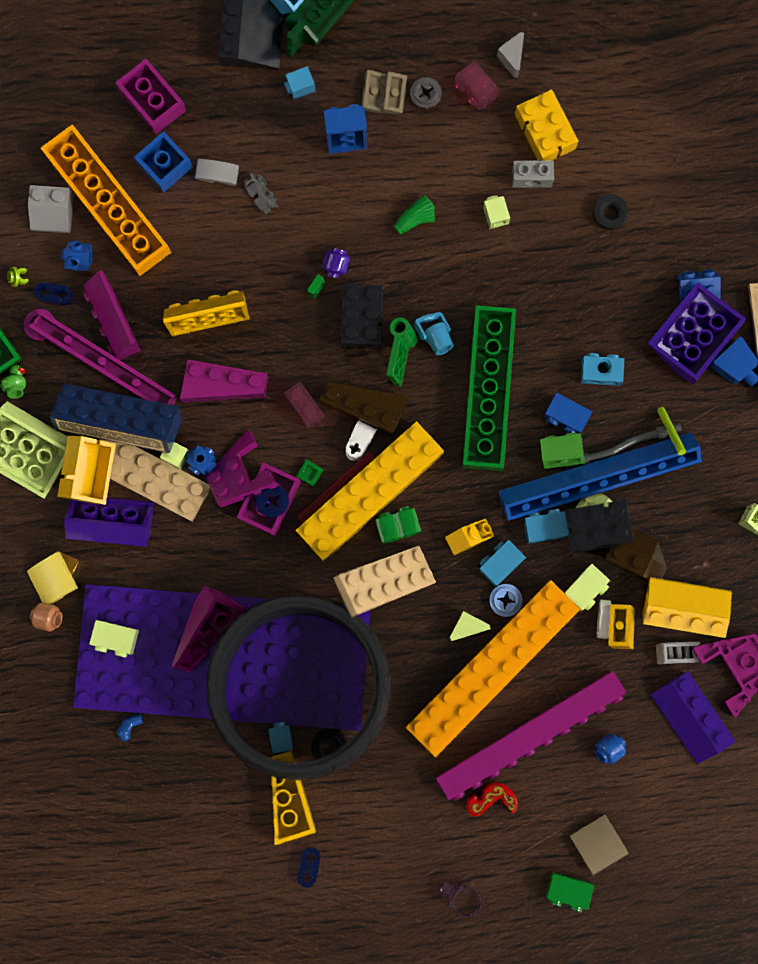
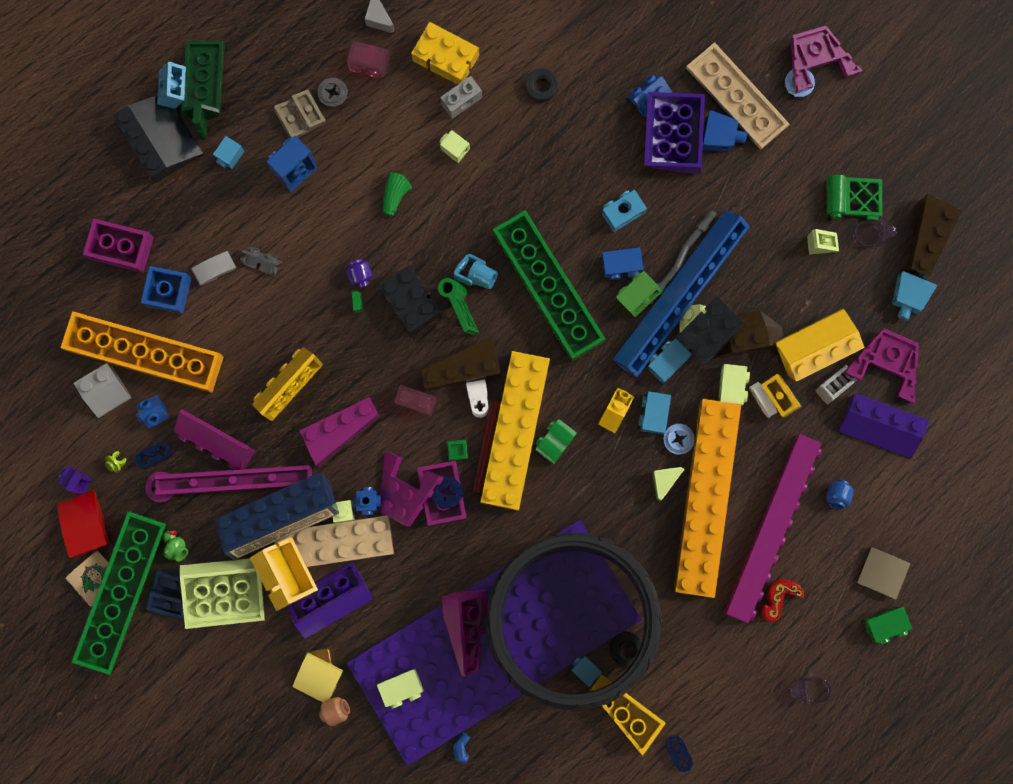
camera: 35 degrees left, 0 degrees up
(384, 580) = (579, 491): tan plate -> none
(671, 431) = (710, 219): lime bar -> none

